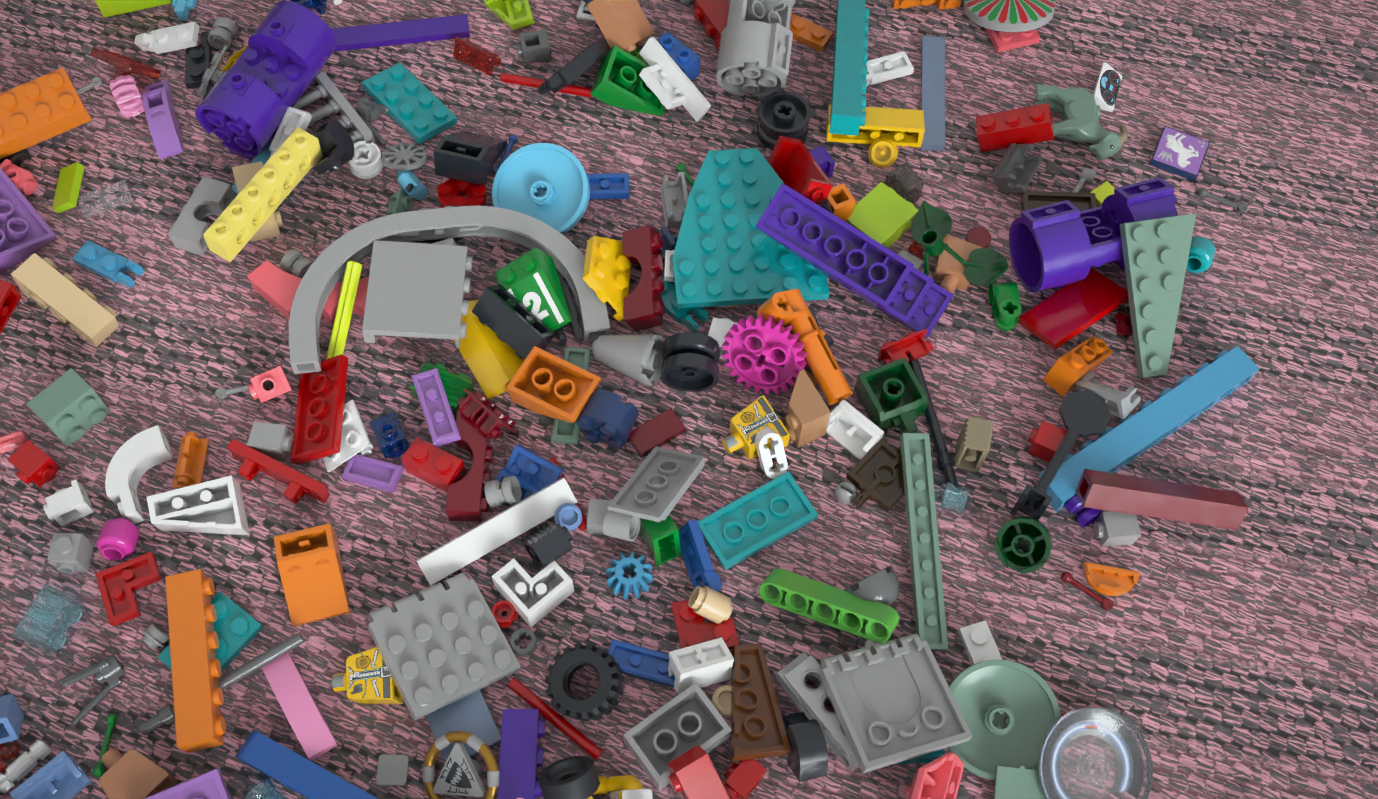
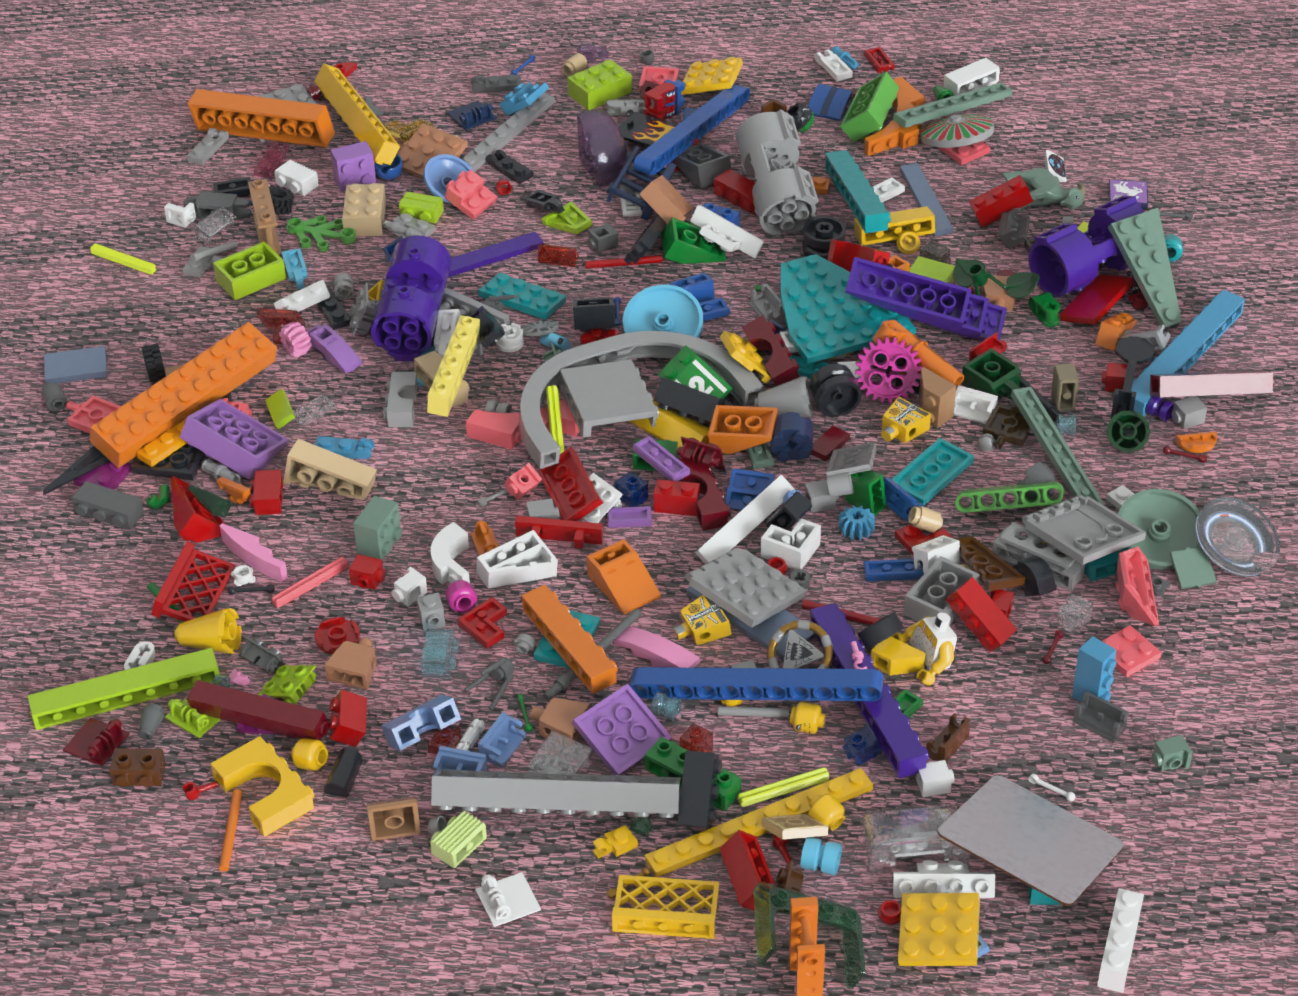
camera: 15 degrees left, 20 degrees down
(504, 491) = (738, 497): light grey wheel -> none
(561, 676) = (859, 567): black tyre -> none
(600, 151) = (698, 285): none -> blue hinge
(776, 452) = (922, 428): white beam -> none

